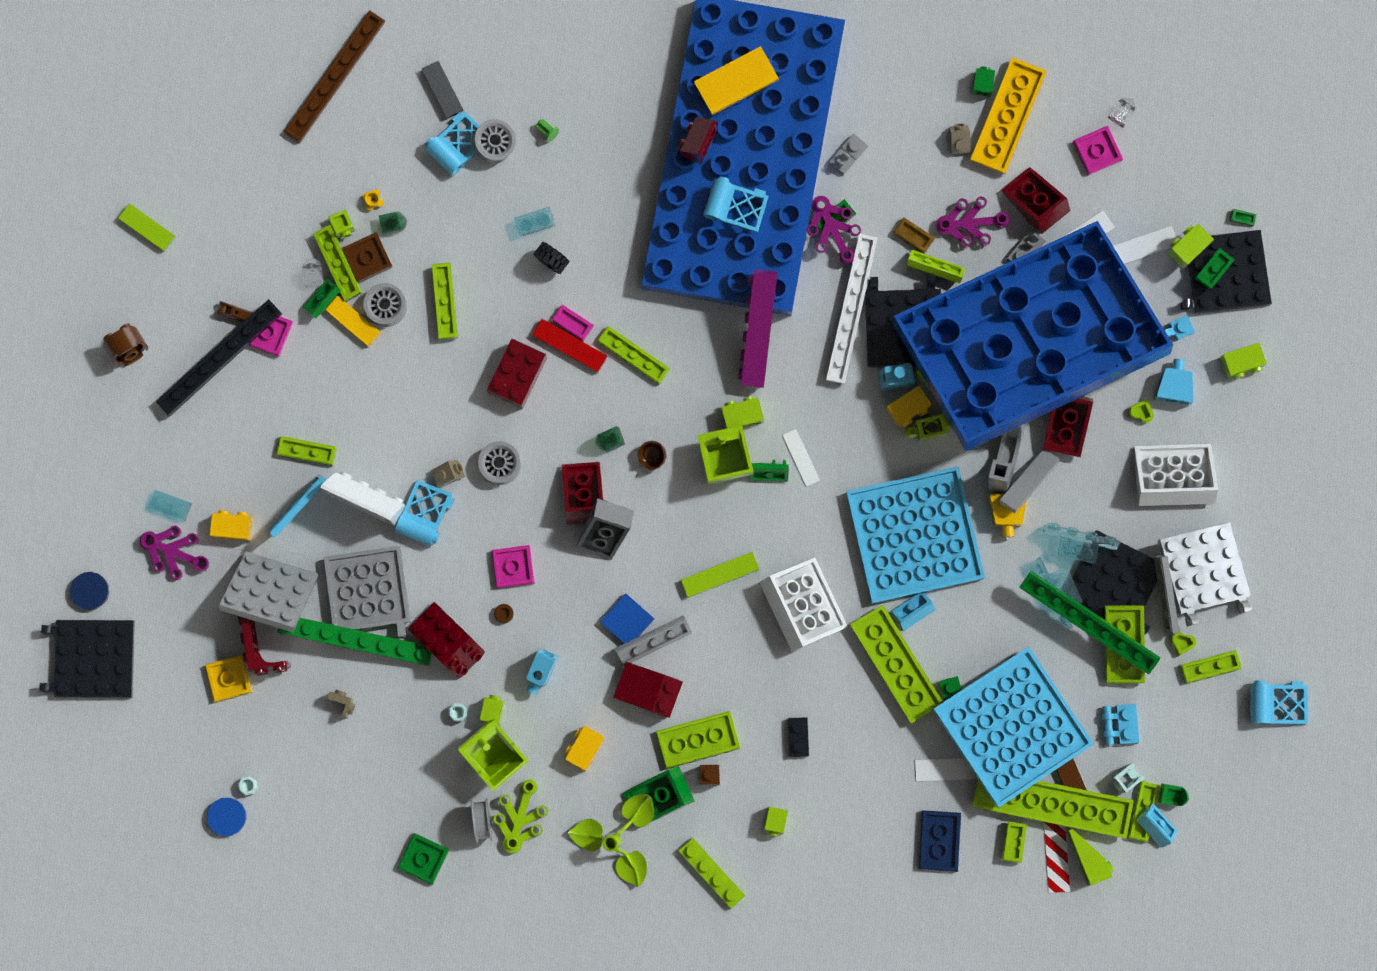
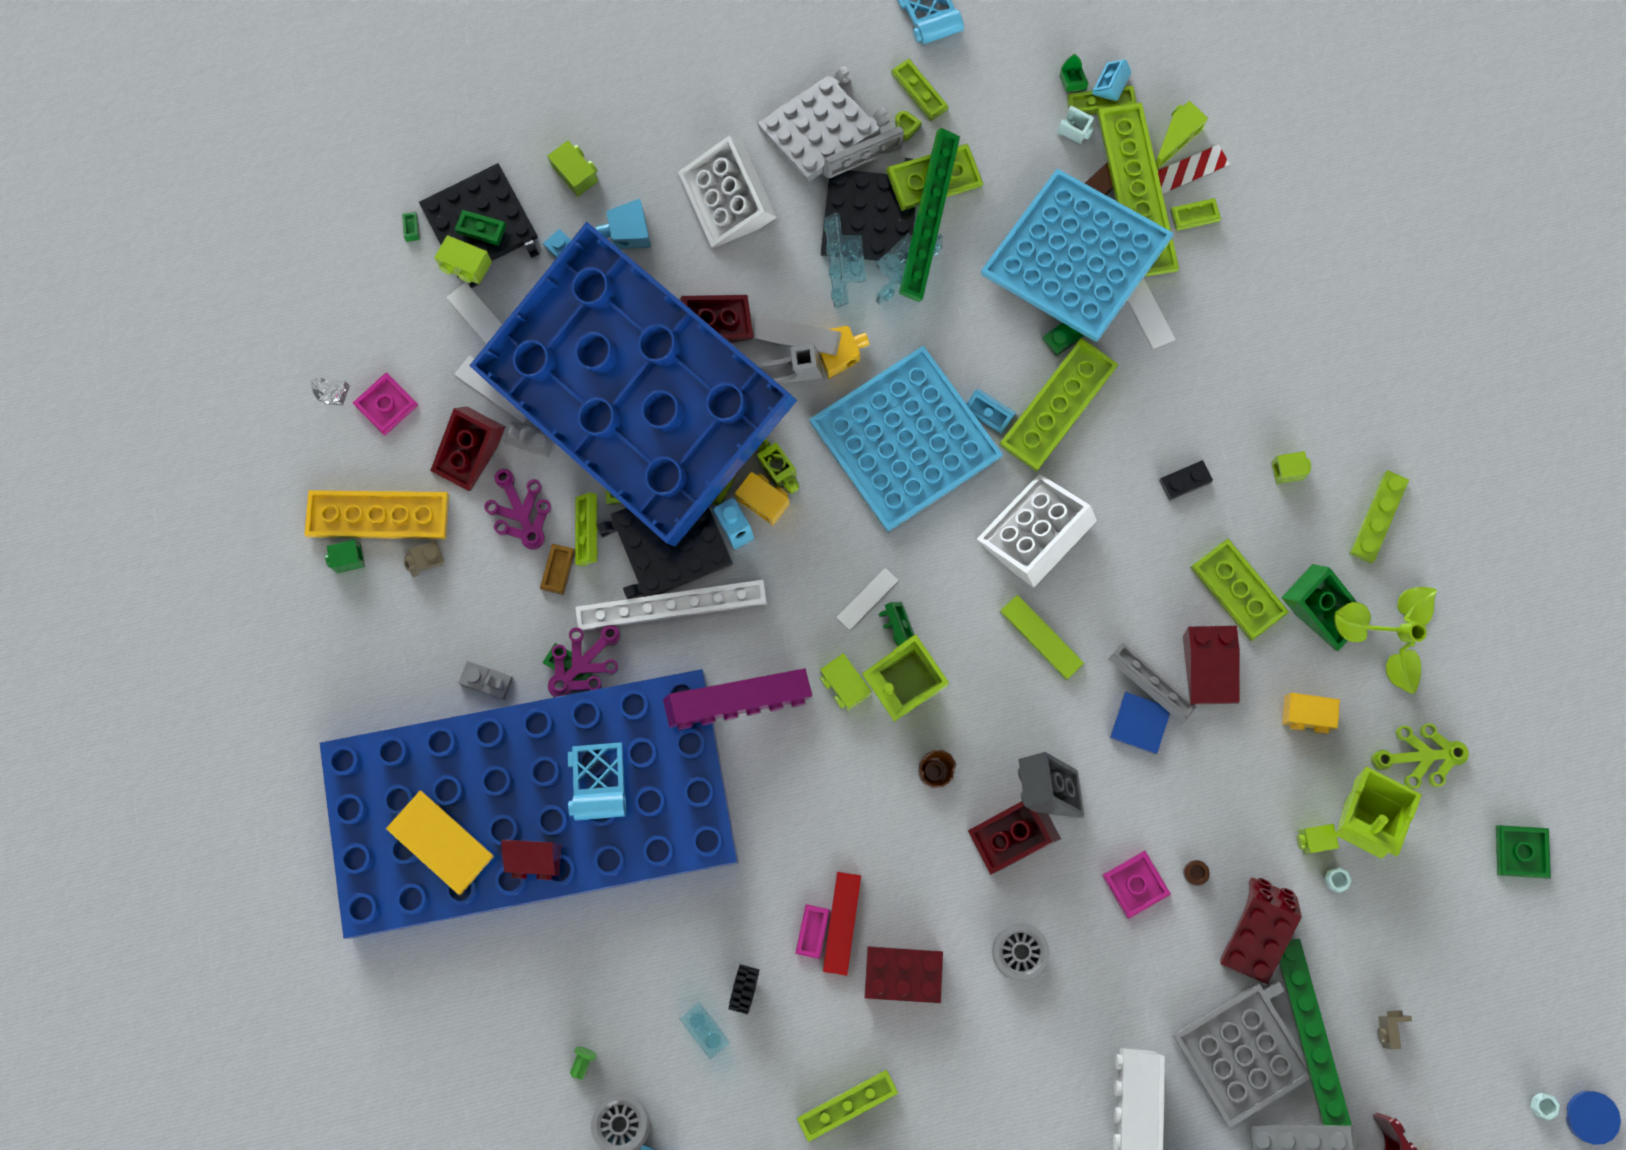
camera: 110 degrees left, 5 degrees down
(418, 528) = (1142, 1021): medium azure piece -> none
(447, 473) = (1059, 1011): dark tan bracket -> none
(481, 820) = (1454, 797): light grey wheel -> none
(545, 663) = (1245, 798): medium azure torso -> none
(610, 439) = (938, 827): clear green plate -> none
(633, 355) = (823, 841): lime tile -> none
(709, 775) = (1275, 558): reddish brown brick -> none
(939, 840) = (1228, 291): dark blue tile -> none
(1126, 723) = (1017, 149): medium azure plate -> none
(1141, 411) = (669, 253): lime tile -> none

